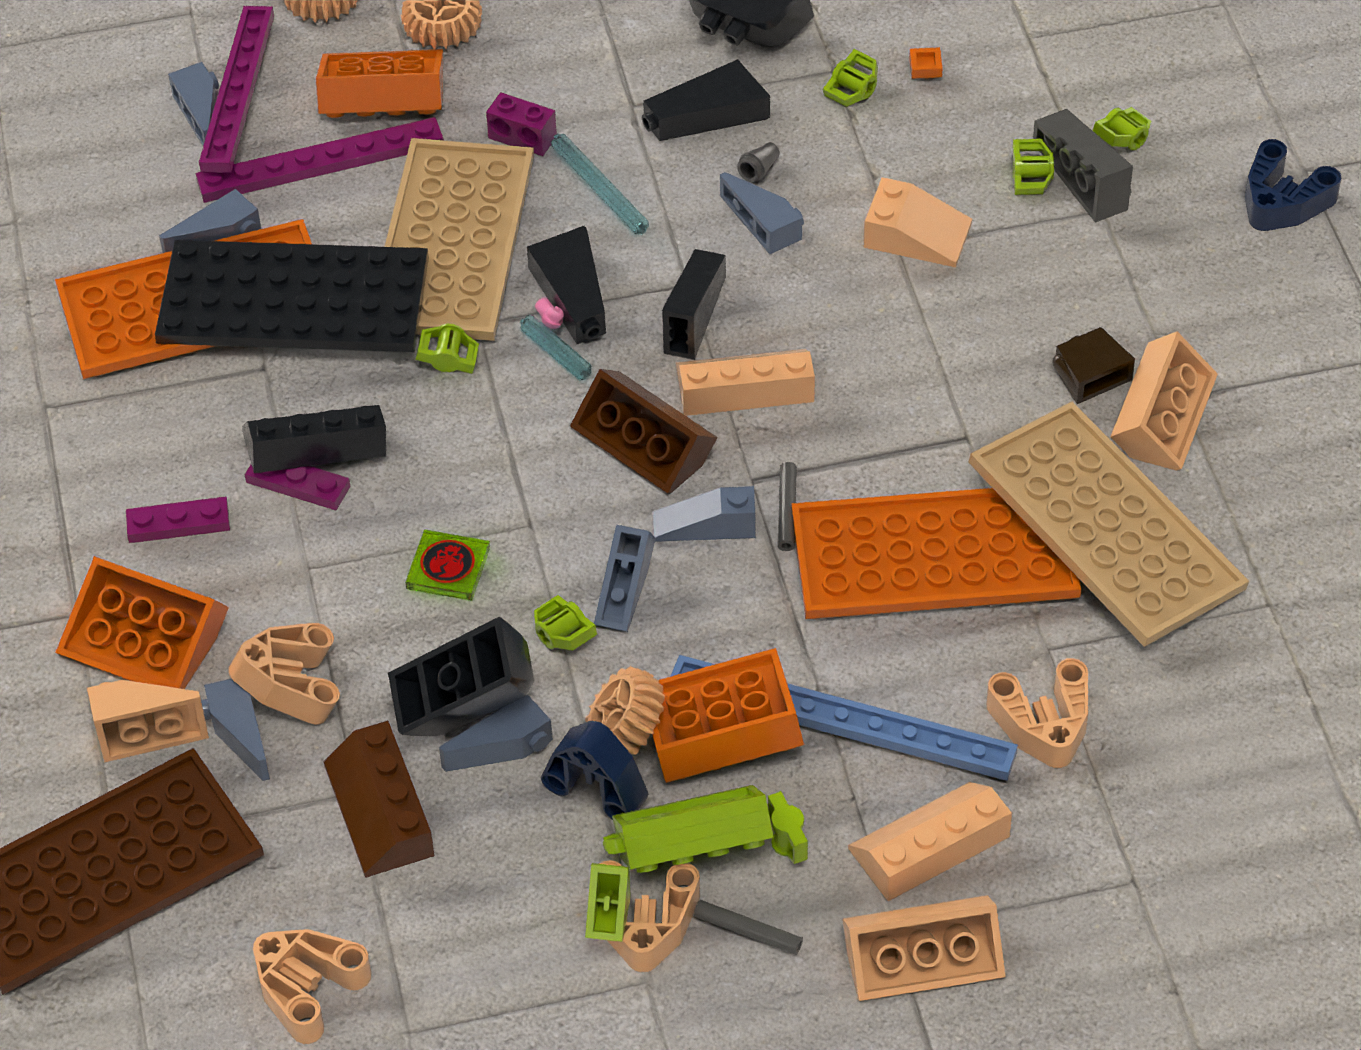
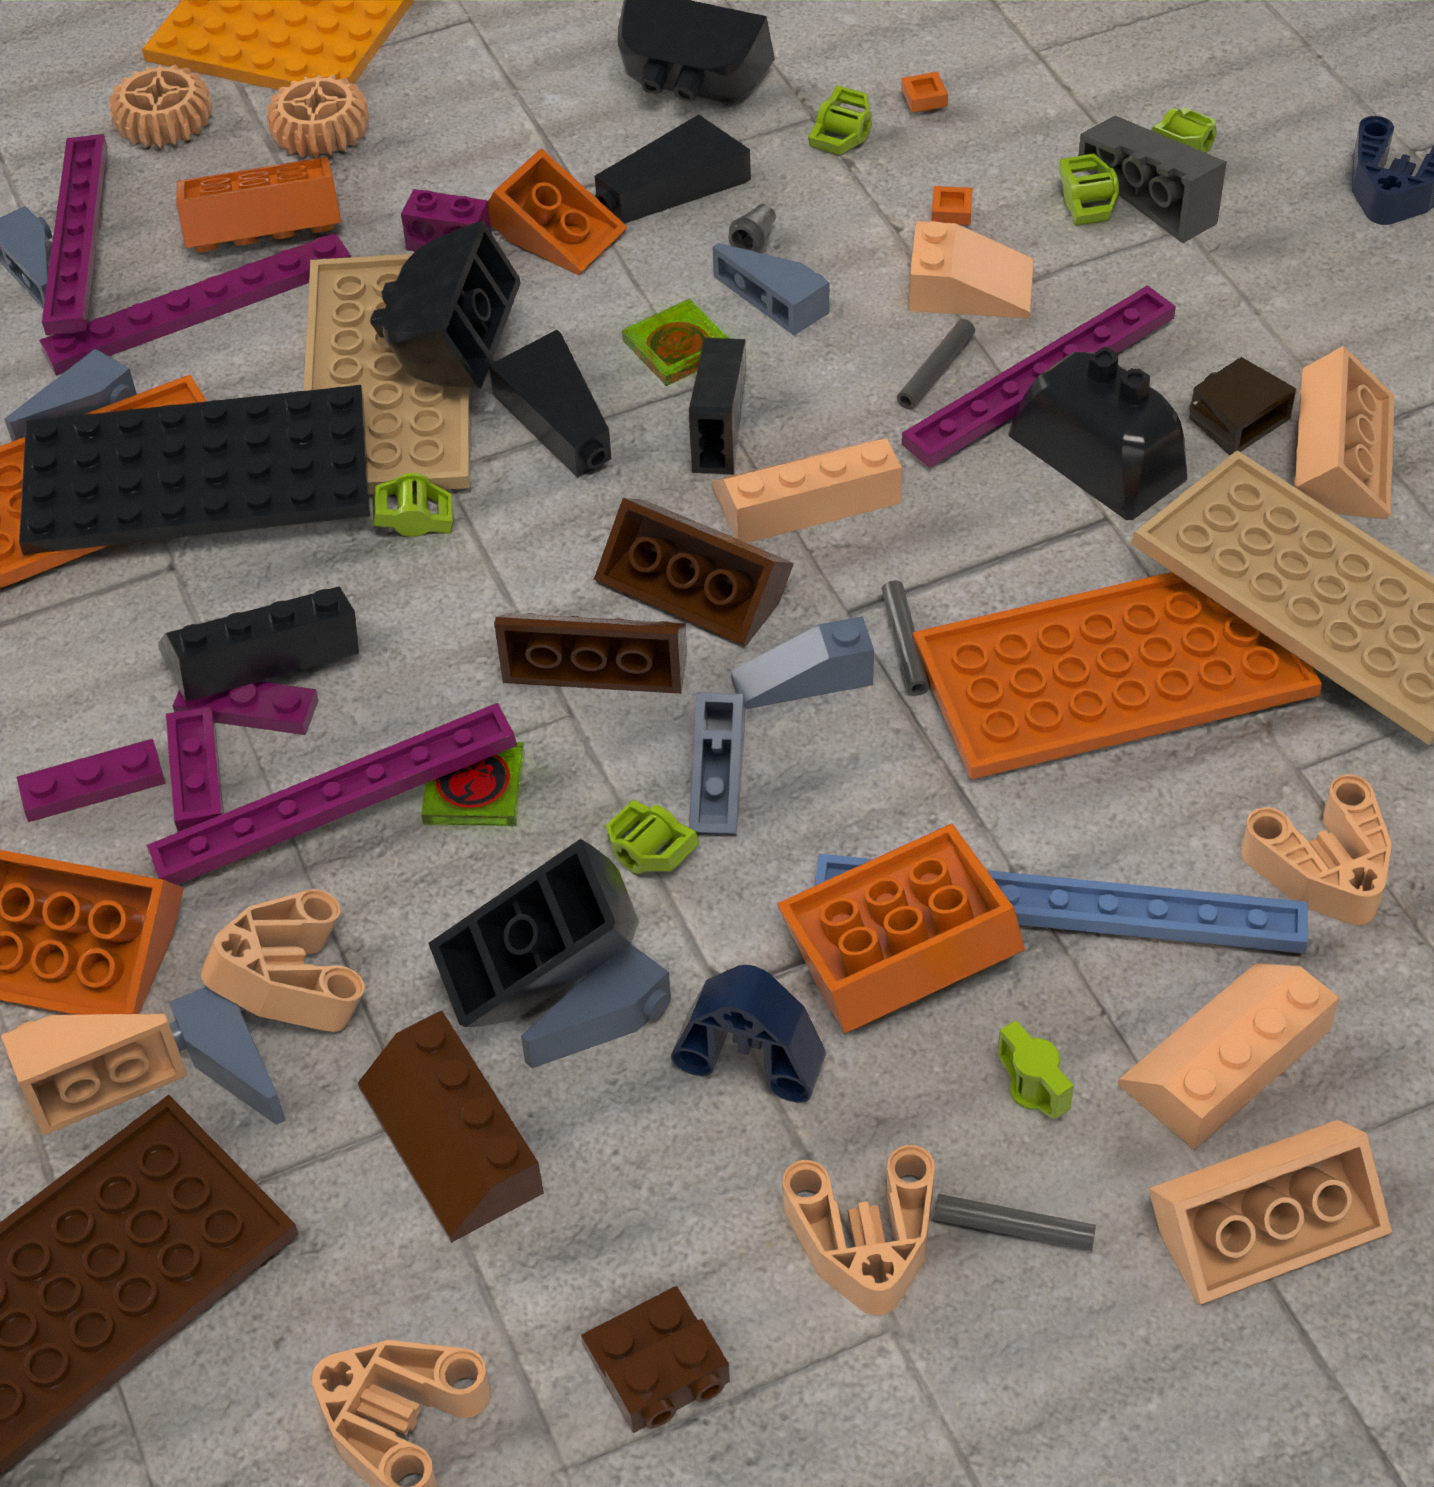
camera: 10 degrees left, 0 degrees up
(252, 523) = (194, 766): none -> magenta plate
(345, 557) = (331, 795): none -> magenta plate
(484, 973) = (657, 1359): none -> reddish brown plate
(505, 197) = (449, 307): none -> black hips
(551, 316) = (537, 445): bright pink arm -> none
(553, 481) = (591, 652): none -> reddish brown slope
(556, 347) = (552, 484): clear light blue axle -> none
(600, 184) = (564, 283): clear light blue axle -> none
(606, 127) = (553, 215): none -> orange slope
(608, 902) = (820, 1225): lime slope -> none
(629, 706) = (776, 931): light nougat gear -> none
(672, 244) = (672, 340): none -> clear neon green tile
(690, 828) = (905, 1094): lime piece -> none
(870, 294) = (935, 364): none -> dark grey piece
(919, 164) = (952, 205): none -> orange plate
(946, 316) = (1001, 396): none -> magenta plate
(978, 371) = (1104, 431): none -> black hips

